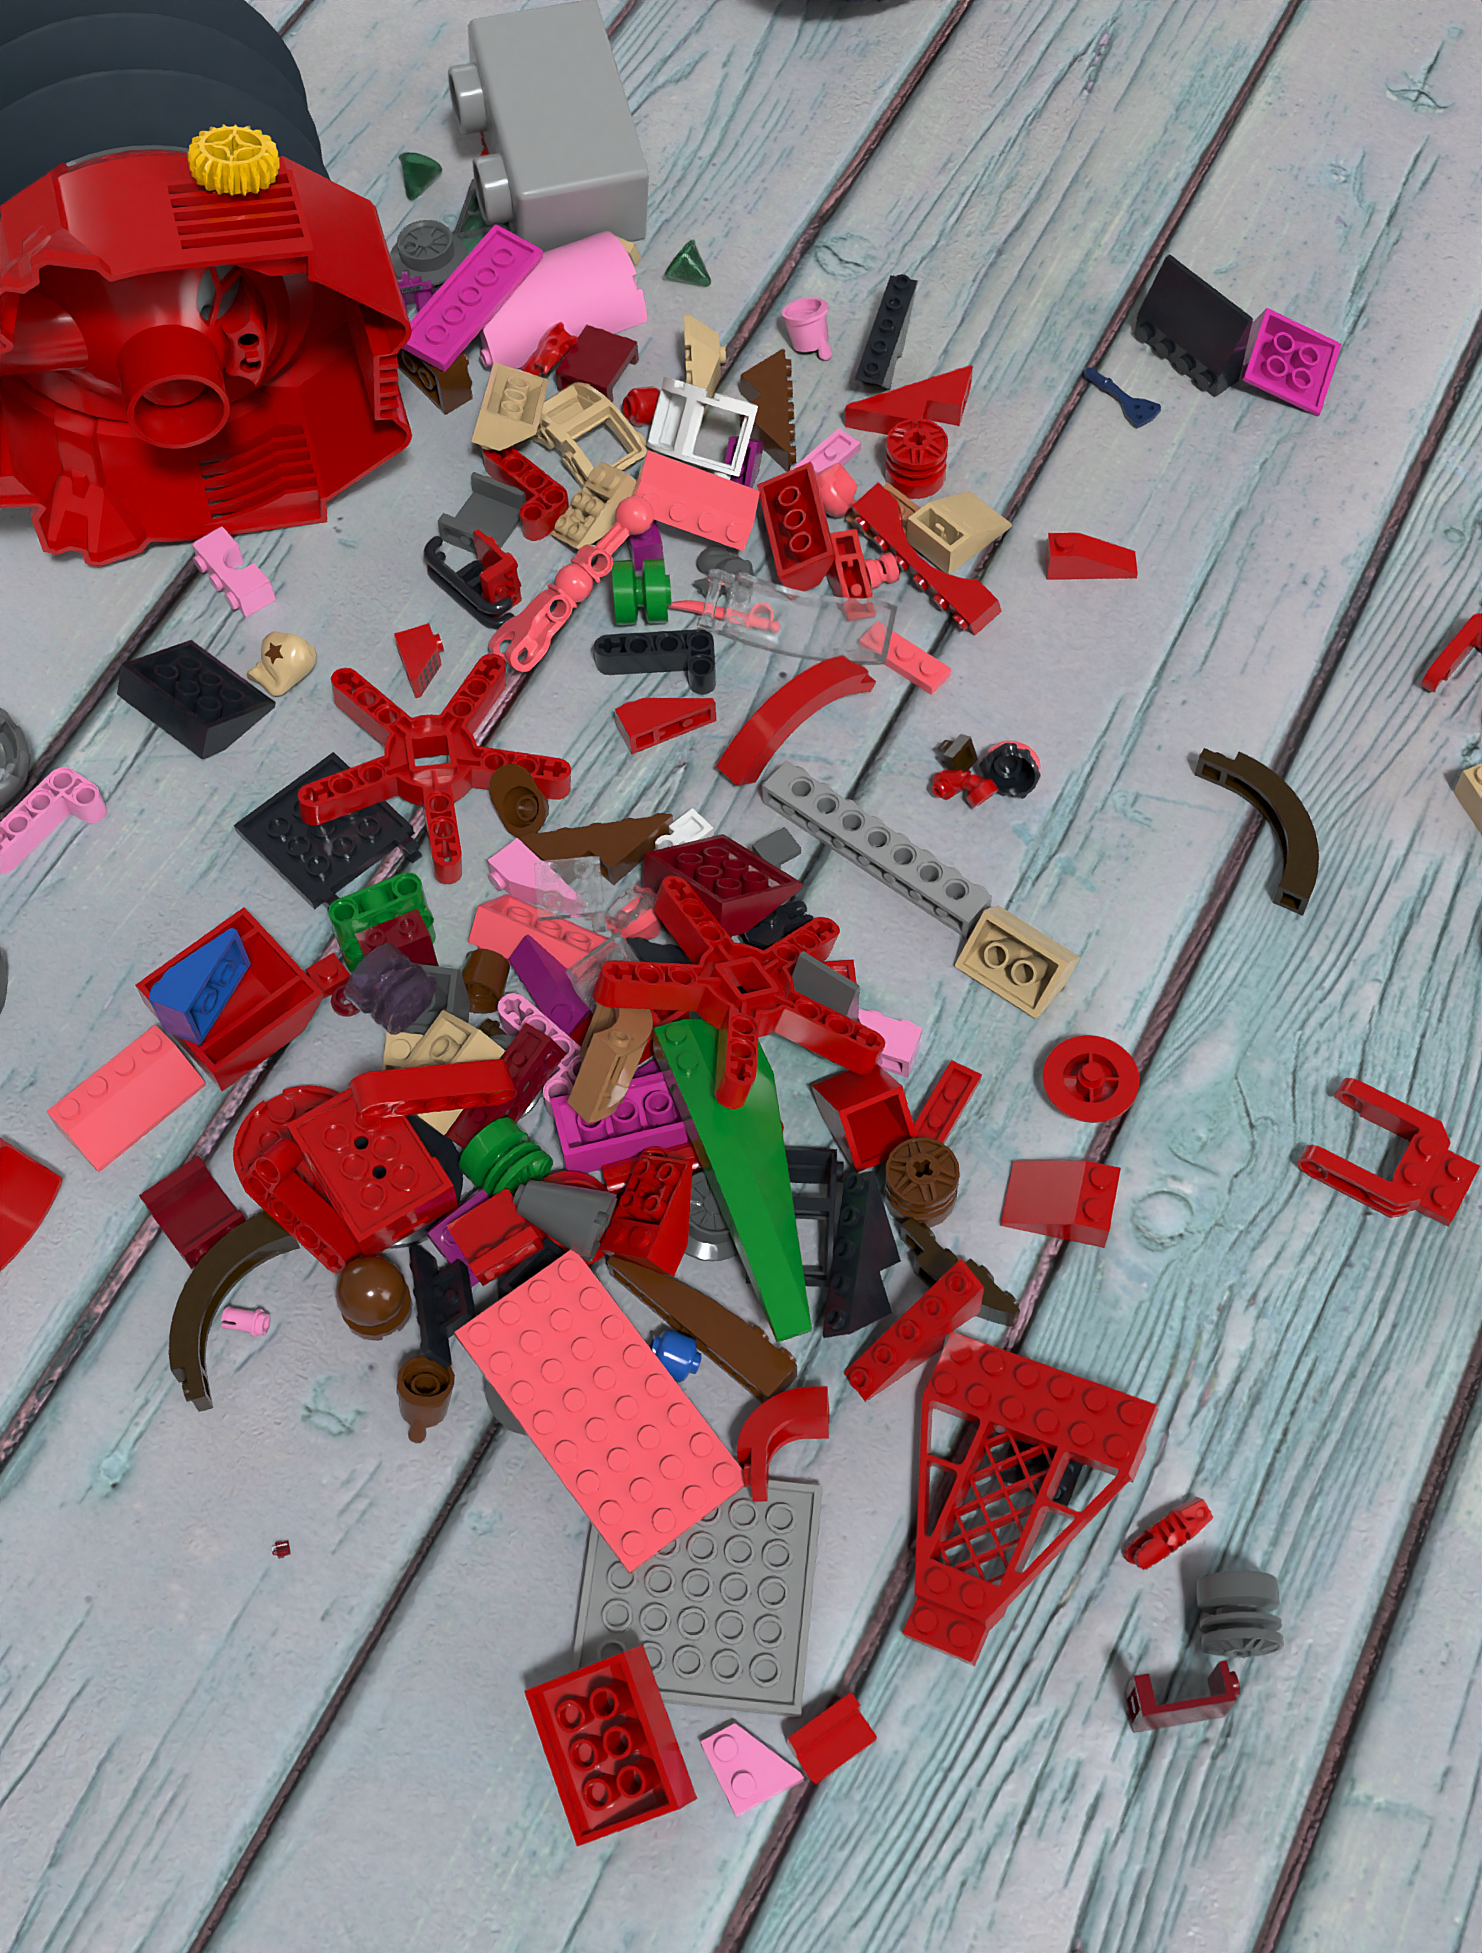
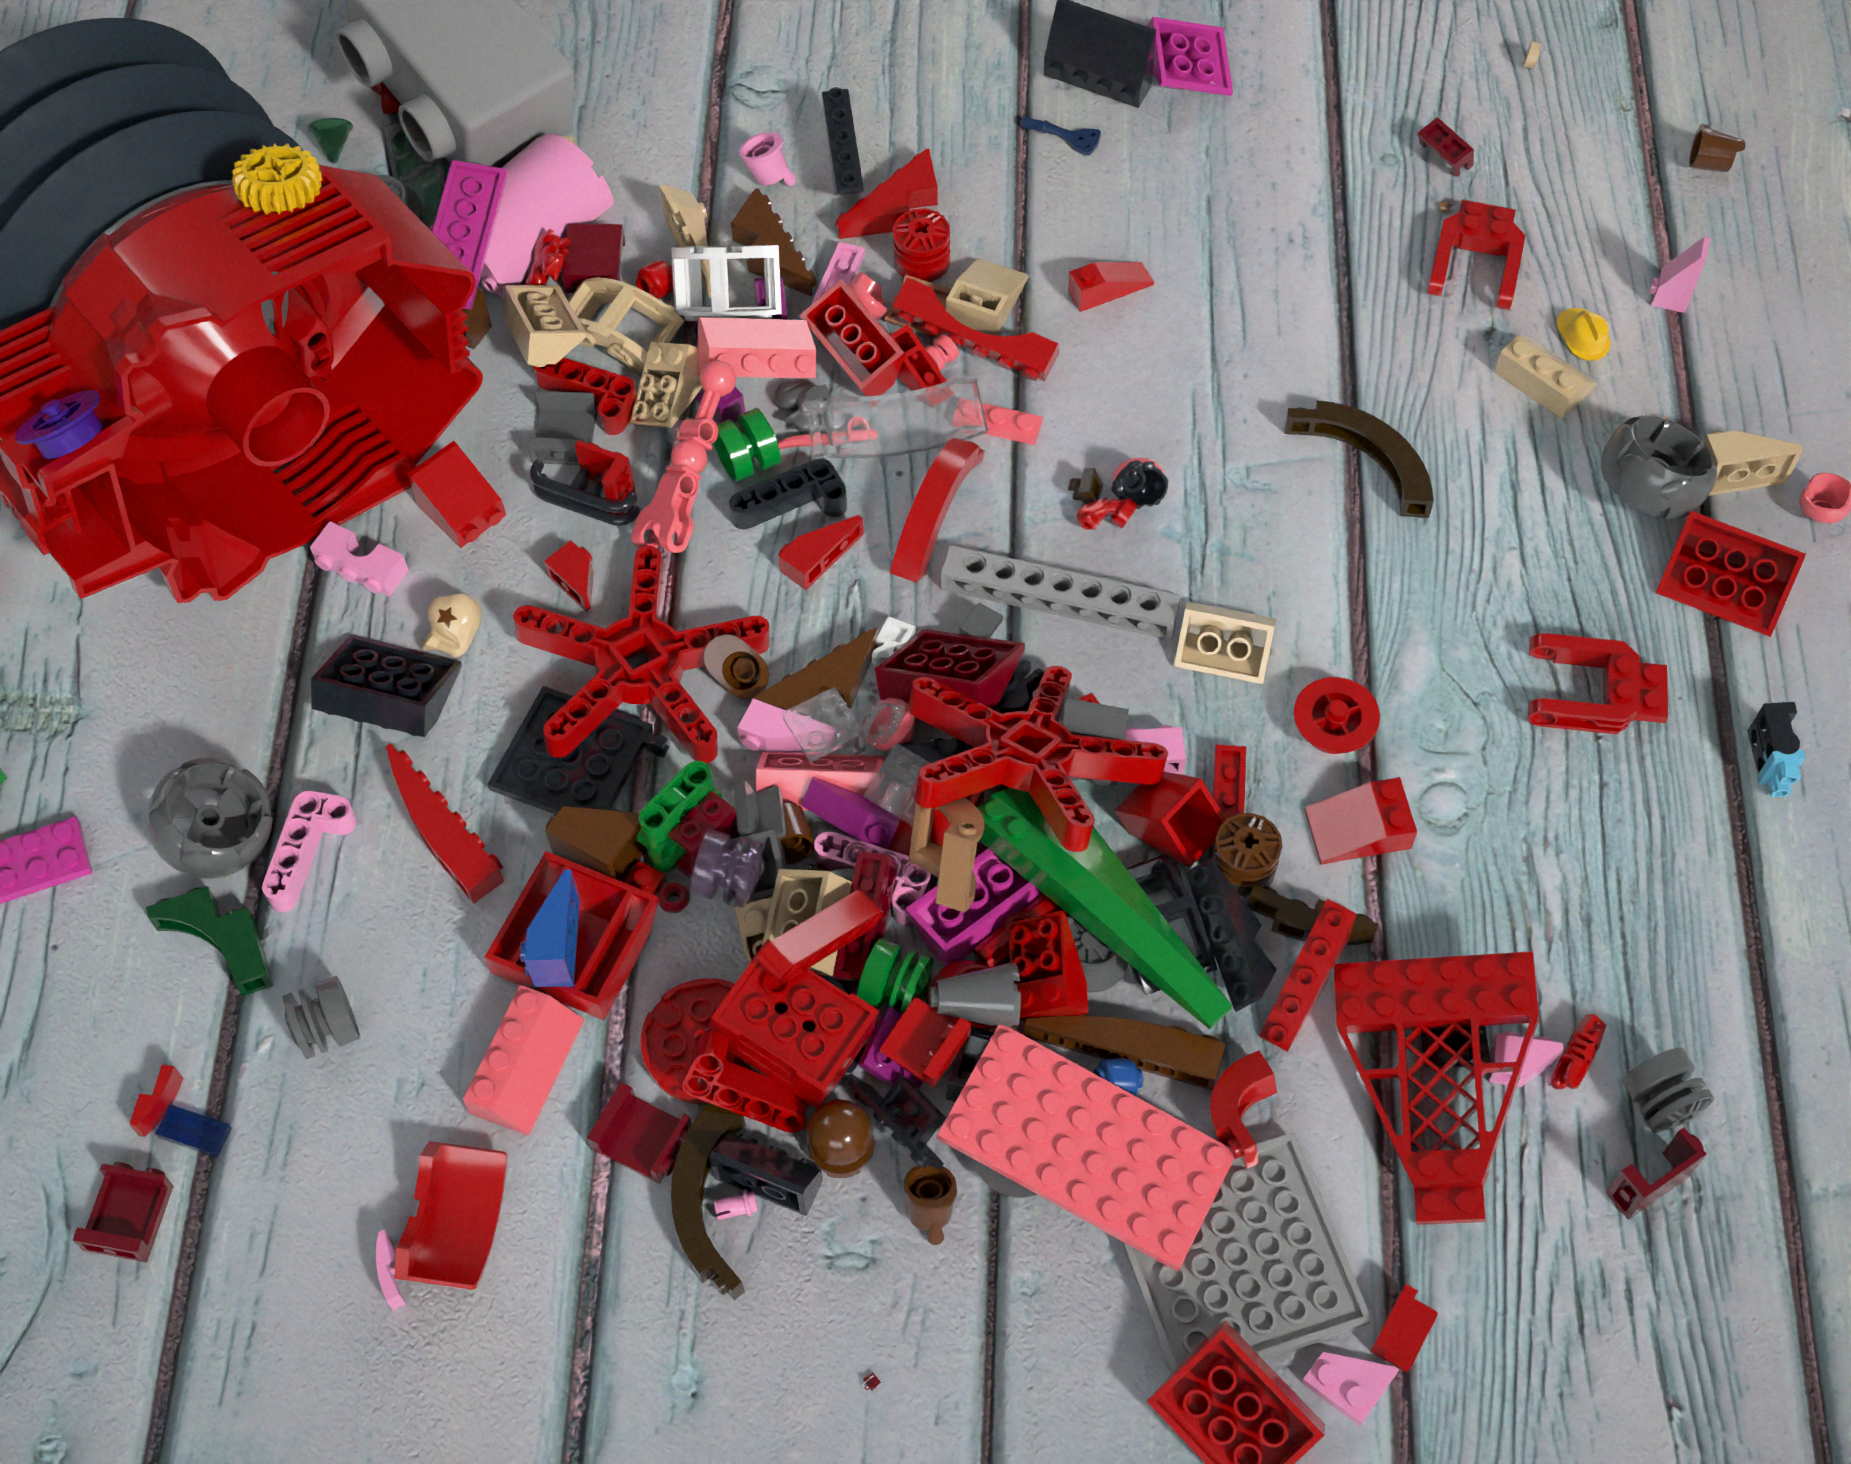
camera: 25 degrees left, 0 degrees up
(171, 853) = (444, 831): none -> red slope
(288, 1299) = (767, 1172): none -> black slope
(295, 917) = (597, 839): none -> reddish brown slope
(348, 542) = (456, 495): none -> red slope
(458, 946) = (759, 810): none -> dark grey panel
(688, 266) = (629, 141): clear green hat -> none
(1115, 1520) = (1541, 1055): none -> bright pink slope

